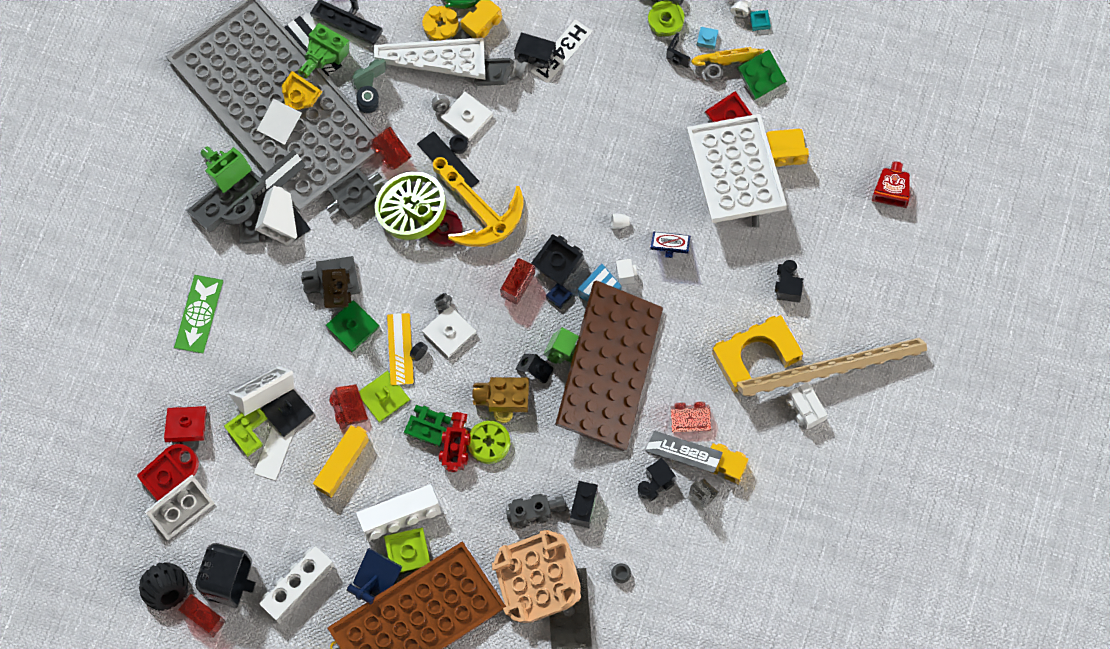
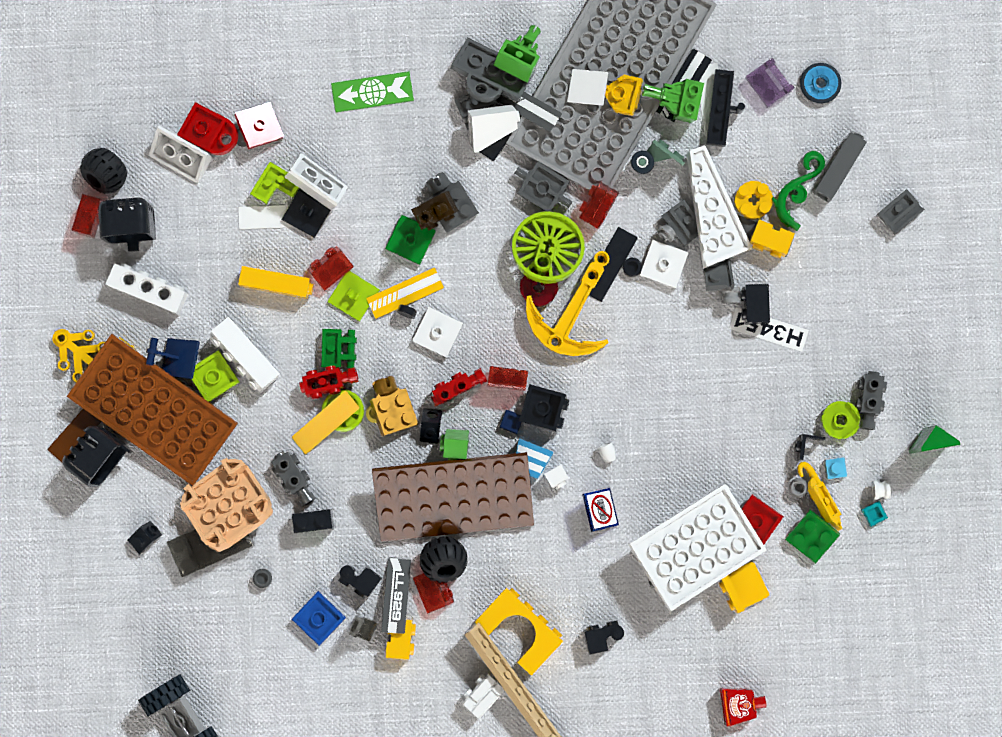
camera: 65 degrees right, 15 degrees up
(436, 84) = (682, 221): none -> dark grey plate
(443, 301) = (464, 315): dark grey plate -> none
(493, 460) = (325, 422): none -> yellow sticker
(506, 327) = (452, 386): none -> red brick
(665, 395) = (443, 559): none -> black wheel
(679, 532) = (318, 618): none -> blue plate

